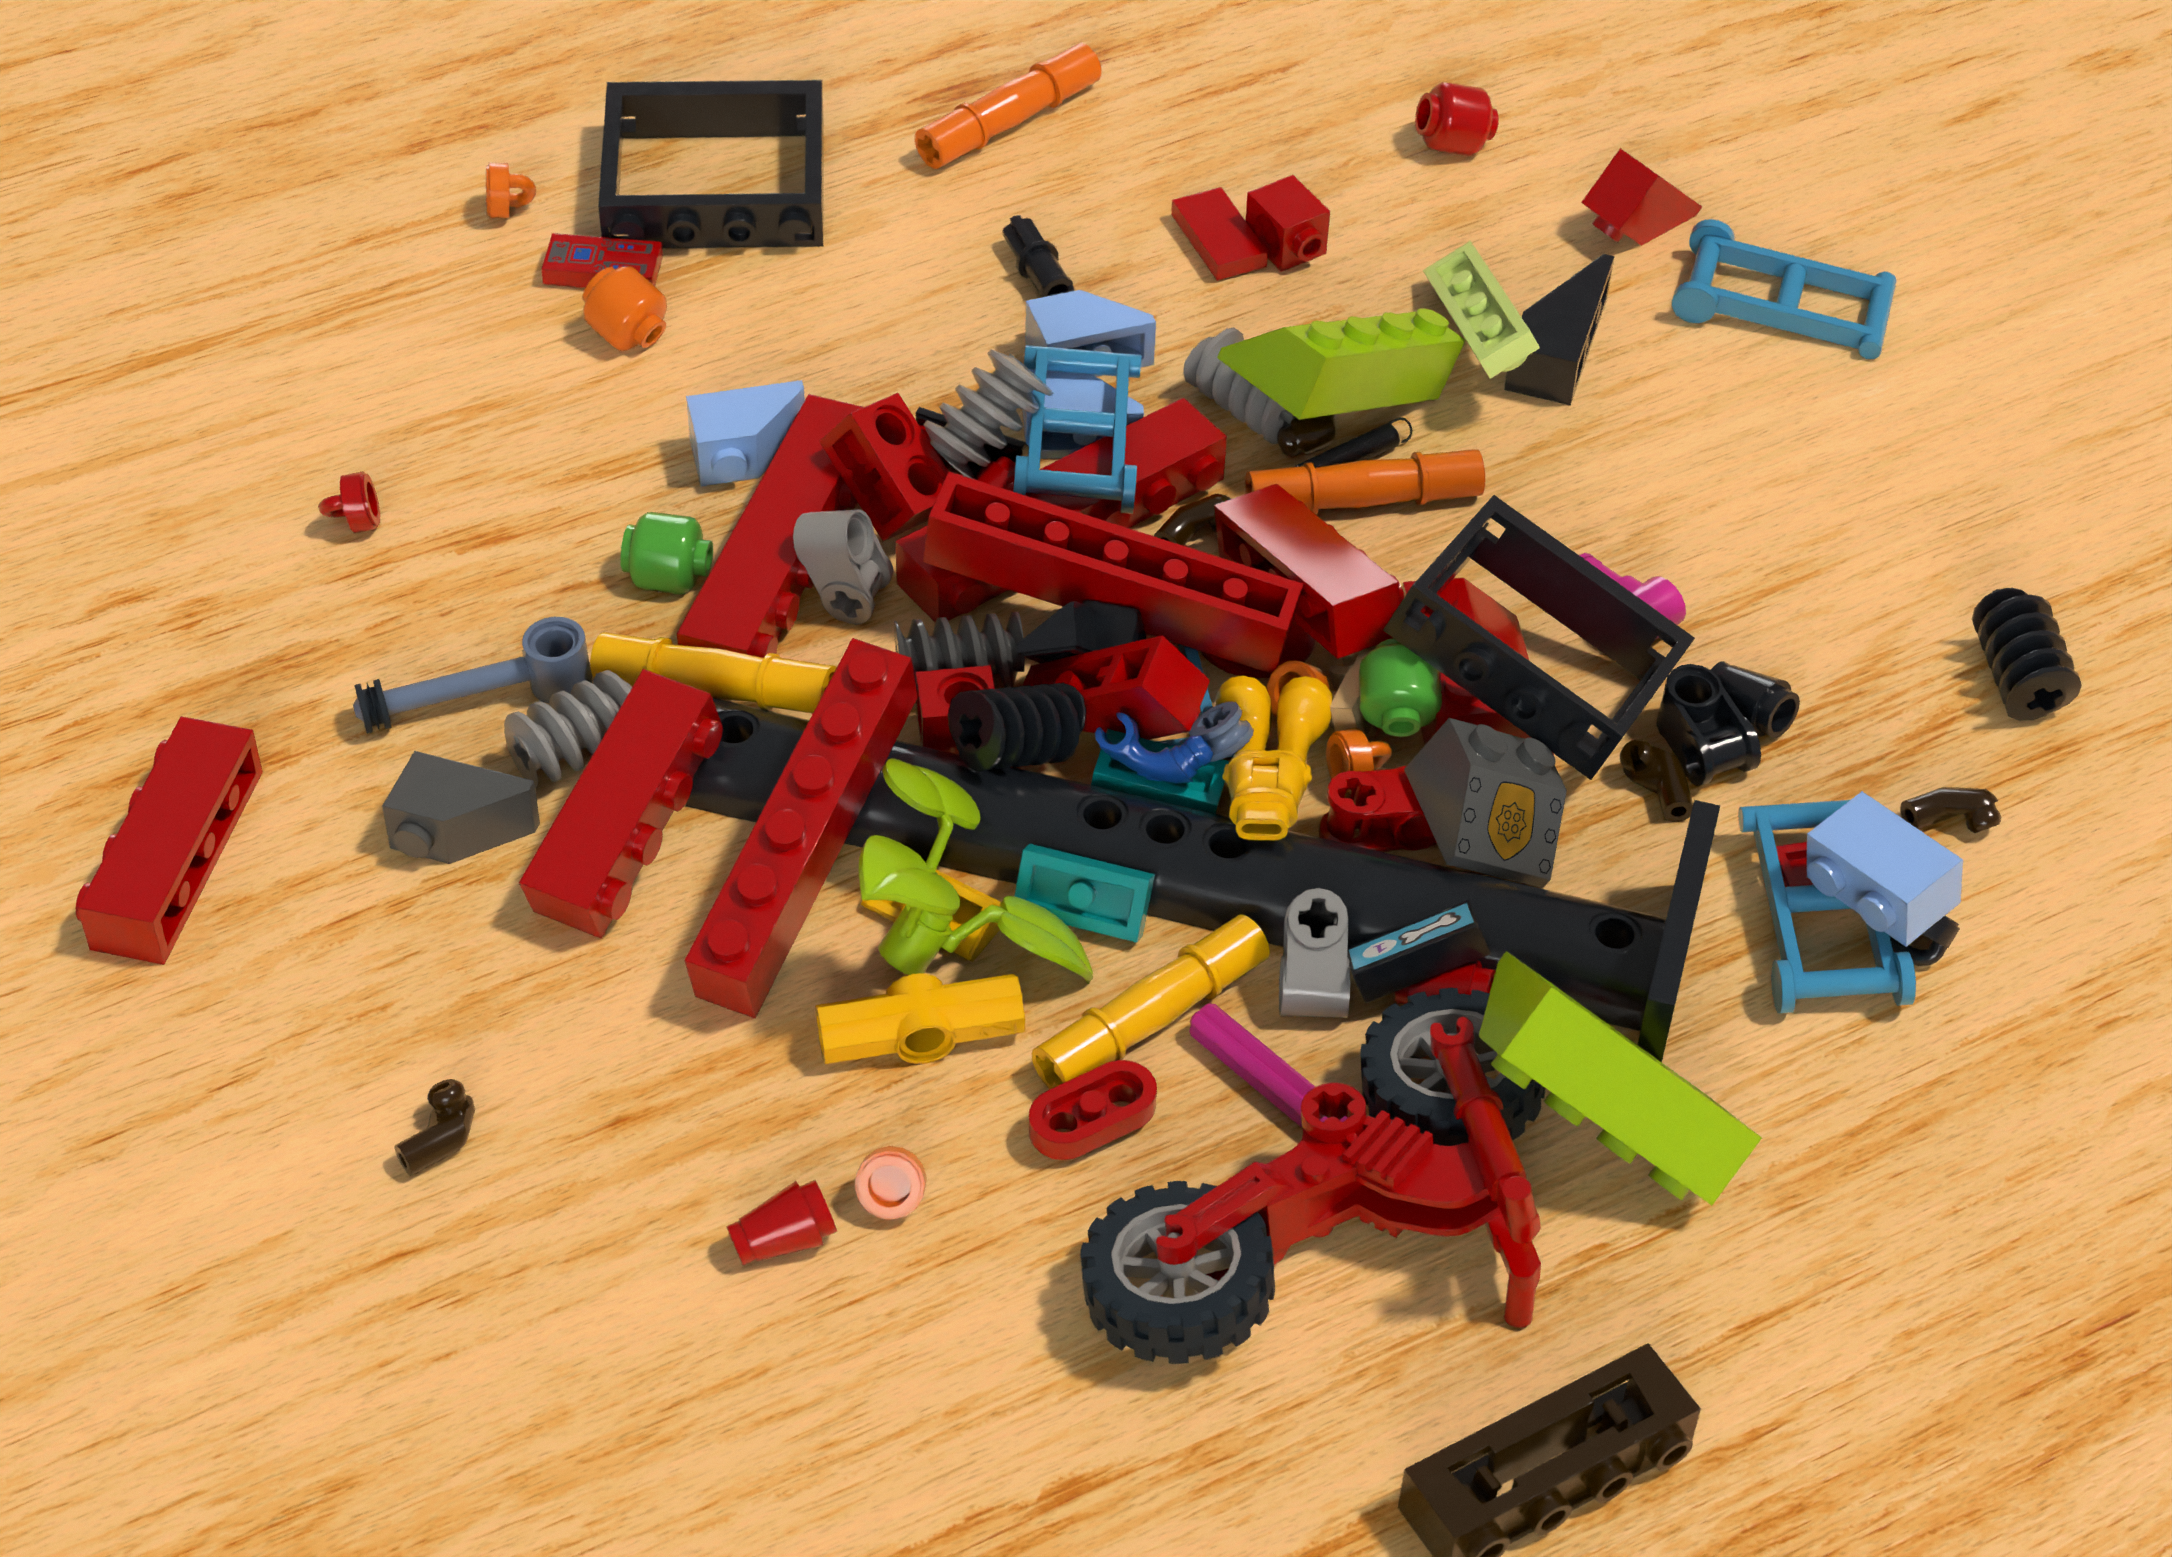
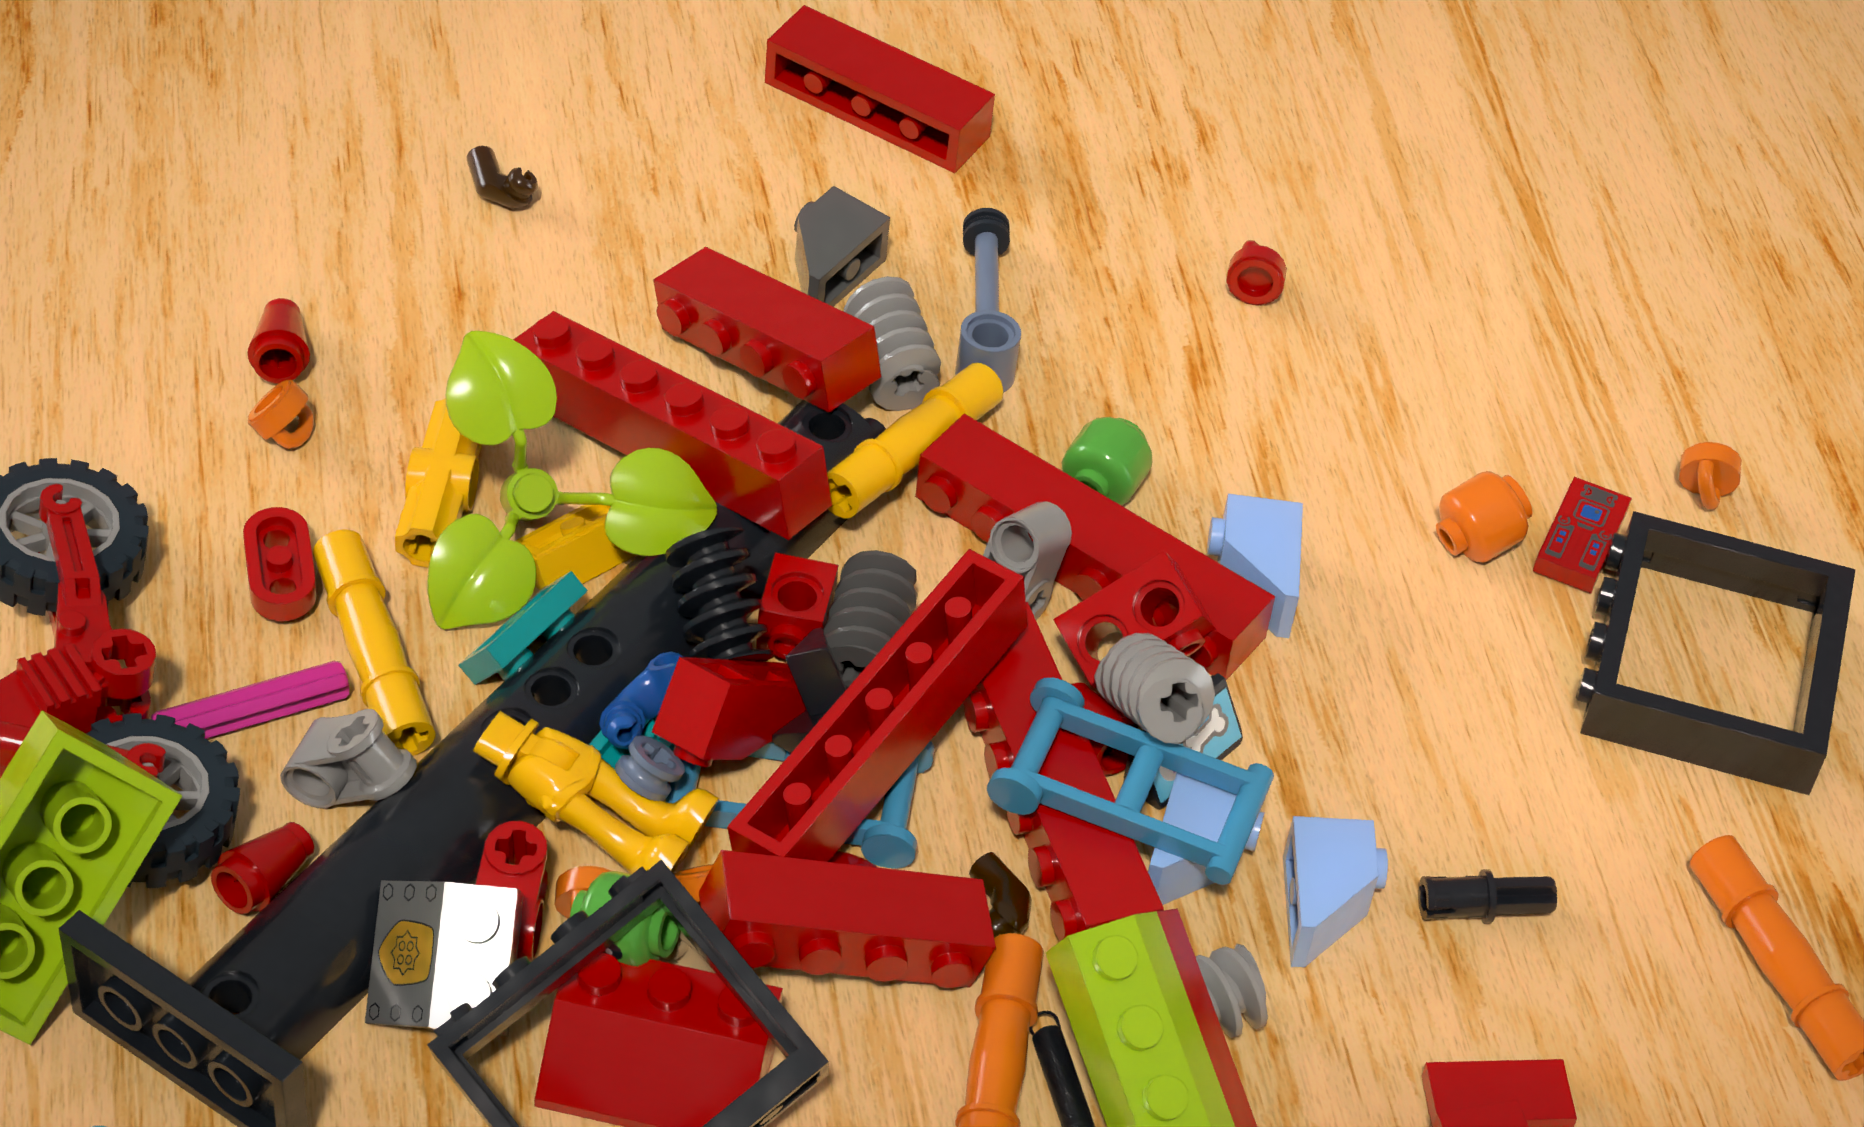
camera: 105 degrees right, 0 degrees up
(1417, 951) = (298, 823): black slope -> none

